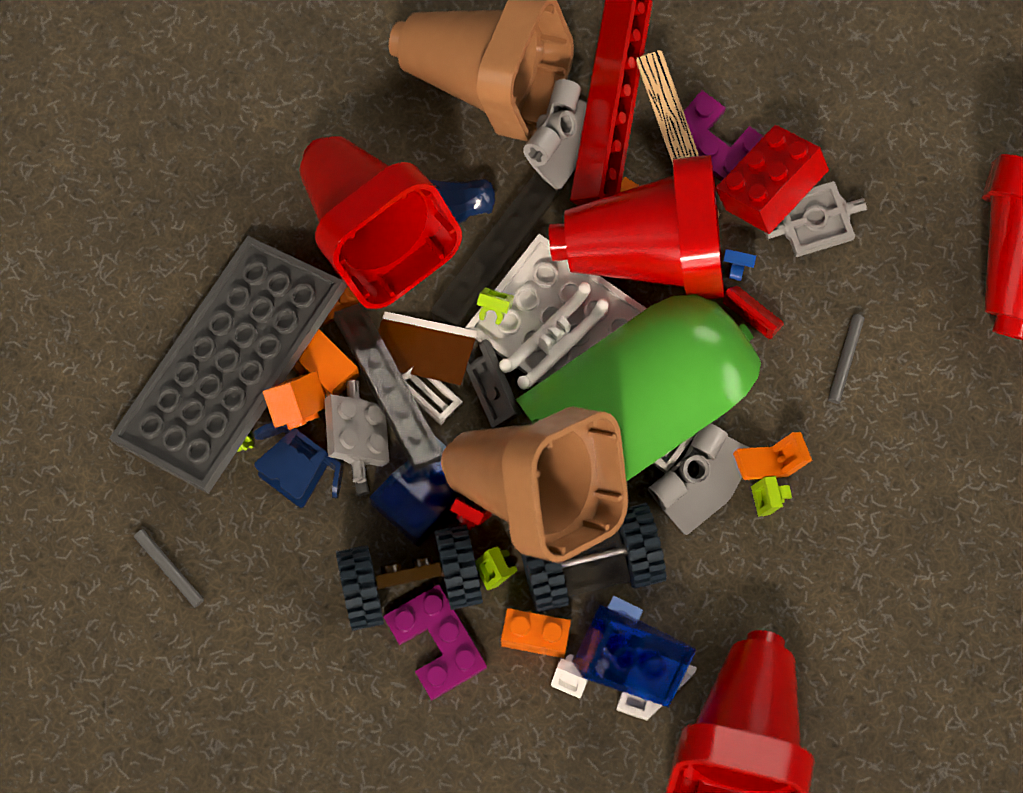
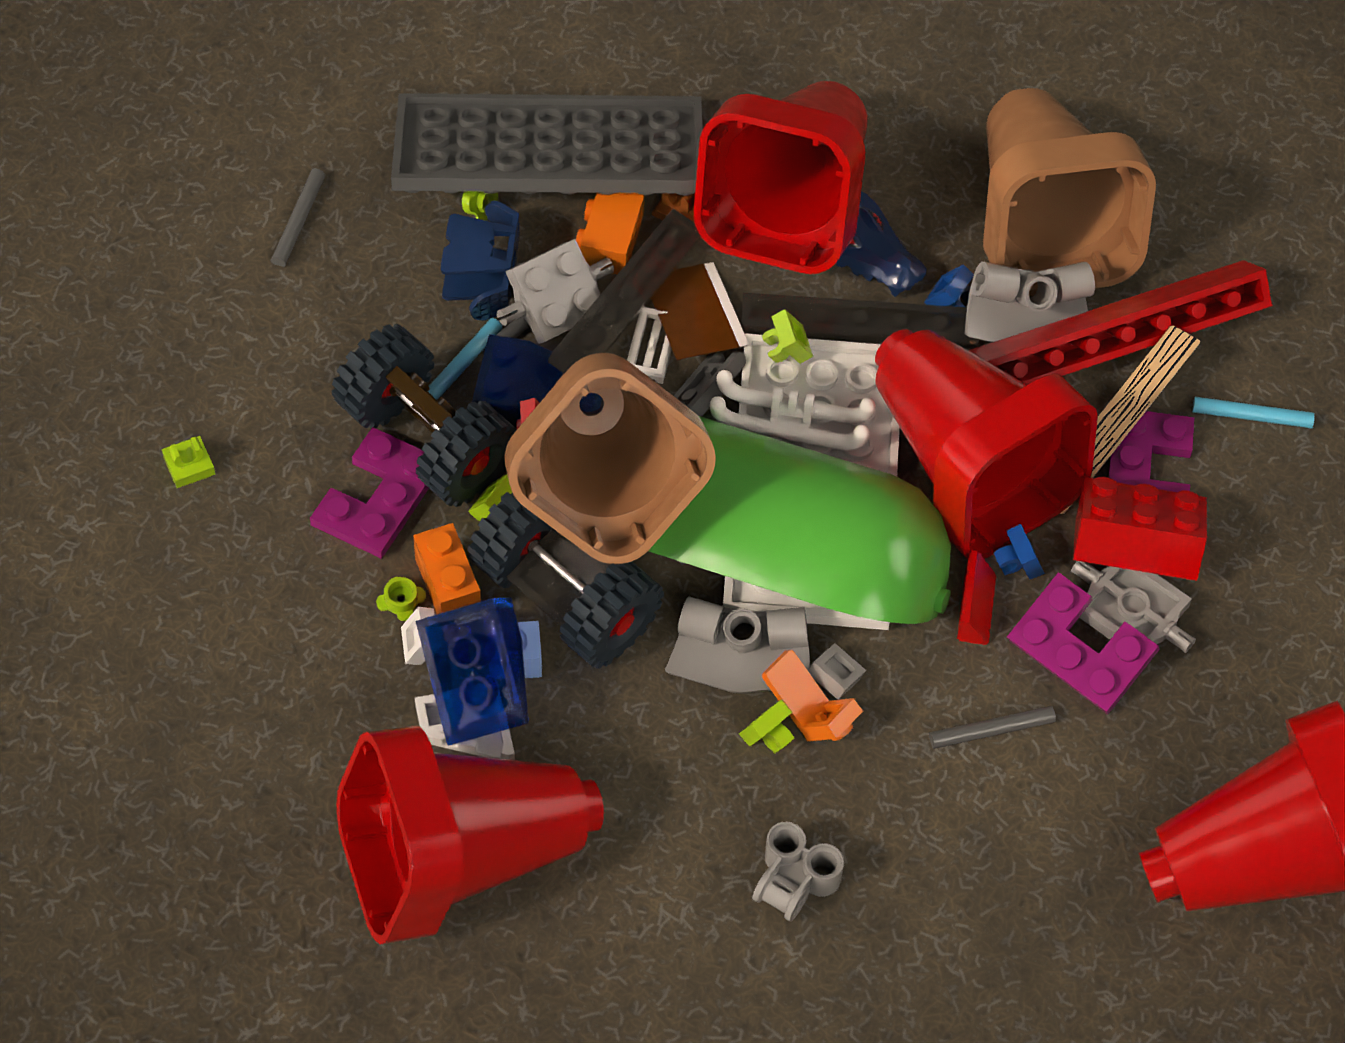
camera: 55 degrees right, 15 degrees down
(295, 400) = (545, 209): orange brick -> none
(331, 756) = (188, 461): none -> lime tile
(363, 525) = (464, 358): none -> medium azure bar
(511, 175) = (951, 287): none -> blue tile
(532, 664) = (400, 587): none -> lime plate
(717, 51) = (1253, 412): none -> medium azure bar
(754, 429) = (836, 671): none -> light grey plate
(808, 286) = (1096, 676): none -> magenta plate
(883, 543) = (792, 874): none -> light grey piece

